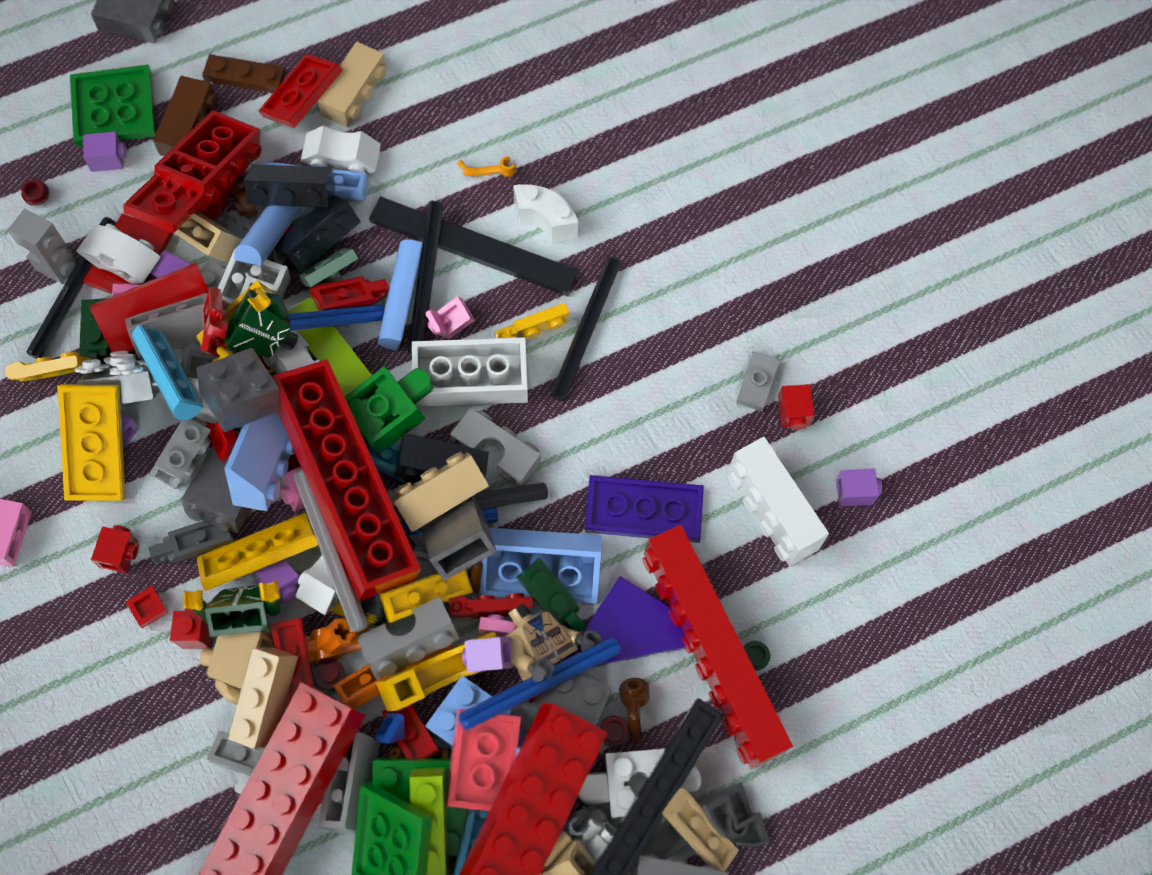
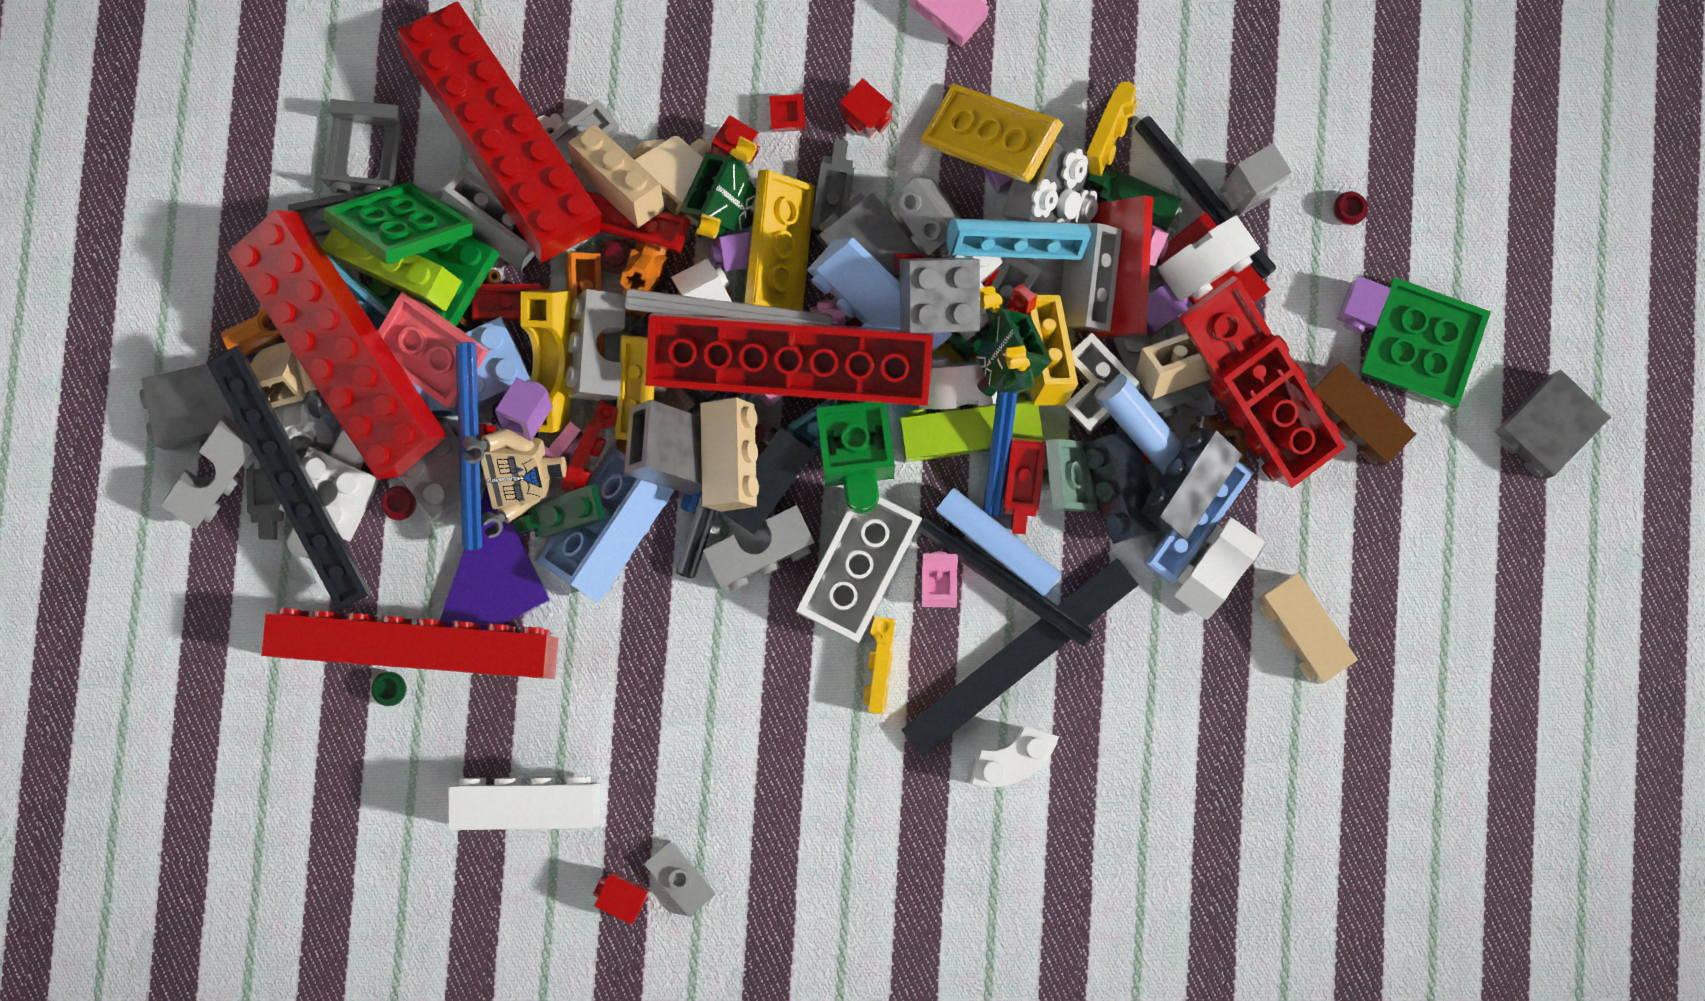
camera: 120 degrees right, 15 degrees up
(214, 315) = (1054, 315): red hinge -> none
(243, 73) = (1393, 513): reddish brown plate -> none
(300, 90) = (1326, 562): red tile -> none
(391, 729) = (515, 280): blue slope -> none
(480, 171) = (1111, 724): light orange piece -> none
(585, 329) = (849, 726): black axle -> none
(634, 694) = (412, 538): reddish brown plate -> none
(643, 507) = (607, 669): dark purple tile -> none
(695, 828) = (246, 524): tan tile -> none
(733, 819) = (245, 567): dark grey brick -> none
(858, 487) = (496, 909): medium lavender brick -> none

